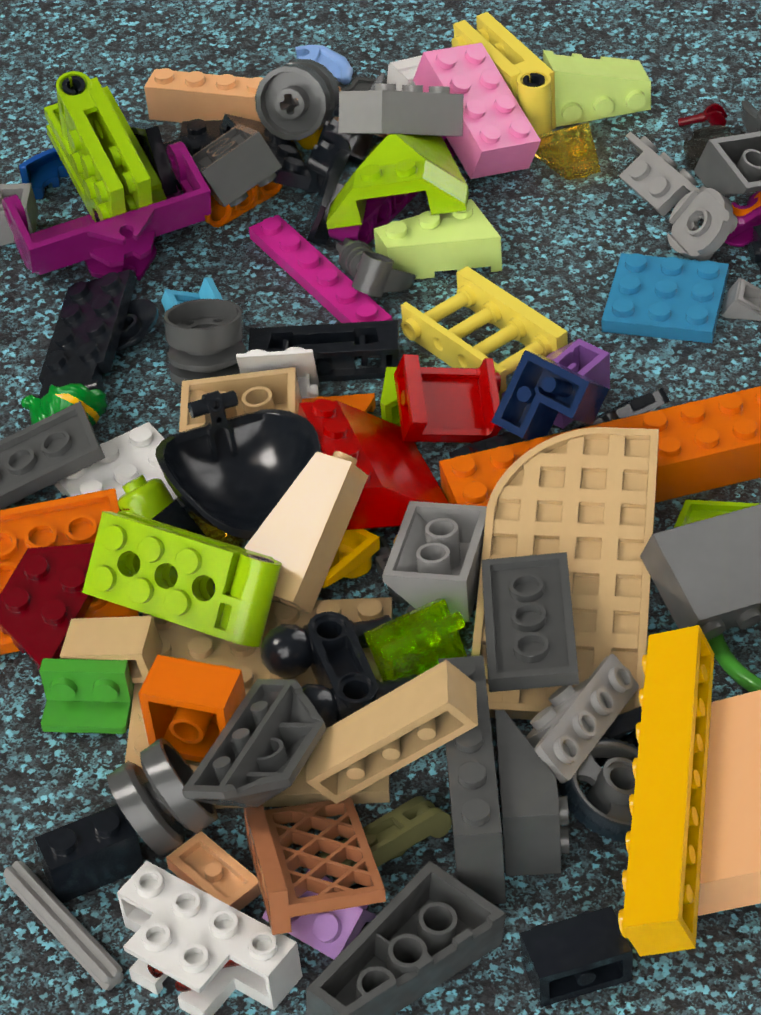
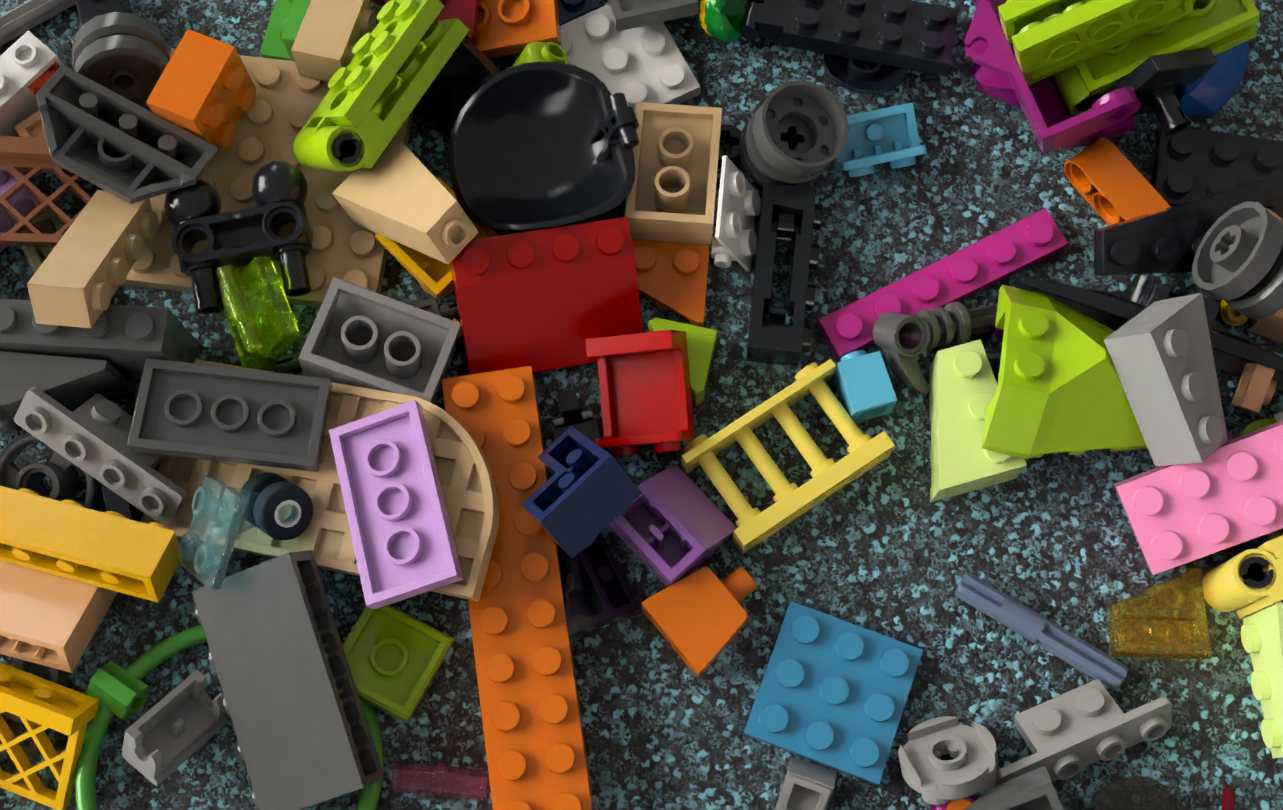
camera: 95 degrees right, 30 degrees up
(236, 164) = (1122, 173): dark grey slope -> none
(417, 289) = (864, 385): none -> medium azure brick
(589, 205) = (1041, 631): none -> sand blue axle
(590, 487) = (395, 505): none -> lavender plate
(633, 601) = (226, 511): none -> clear light blue plate
(636, 359) = (701, 614): none -> orange torso

